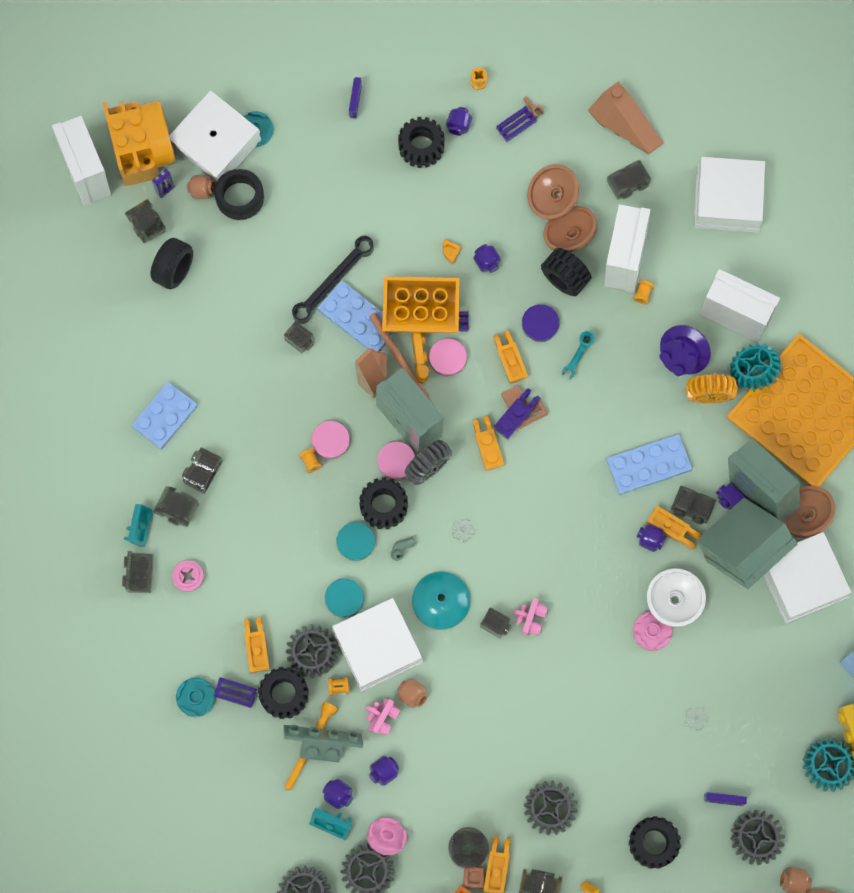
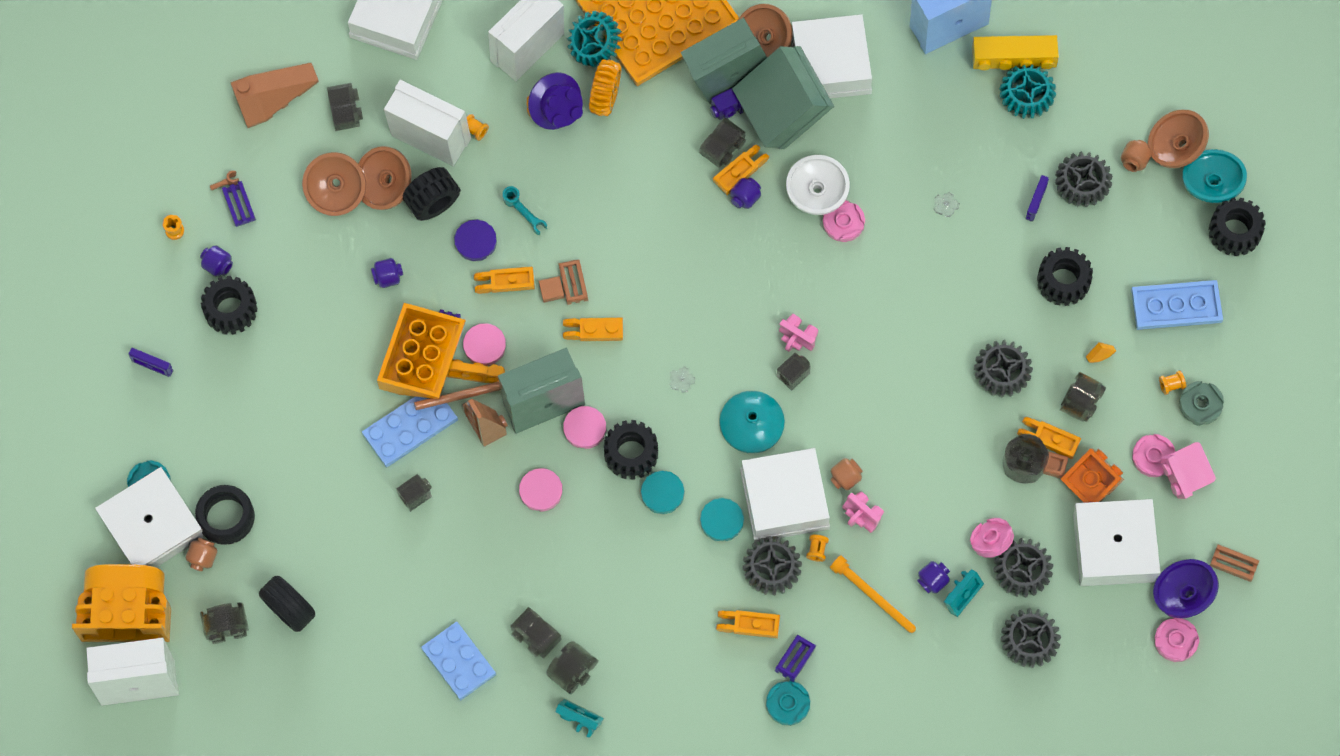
camera: 75 degrees left, 5 degrees down
(138, 572) = (633, 729): clear smoke bracket -> none
(167, 176) = (186, 593): dark purple tile -> none
(186, 567) = (650, 668): bright pink gear -> none
(279, 676) = (815, 588): black tyre -> none
(310, 460) = (559, 515): light orange bush -> none
(322, 743) = (876, 577): sand green bracket -> none
(333, 279) = (357, 440): black piece -> none
(383, 770) = (921, 524): dark purple head -> none
(400, 546) = (682, 447): sand green arm -> none
(428, 462) = (601, 388): dark grey gear -> none
(451, 250) = (363, 310): light orange tile -> none
(515, 415) = (573, 290): dark purple hinge -> none
(649, 464) = (665, 175): light blue plate -> none

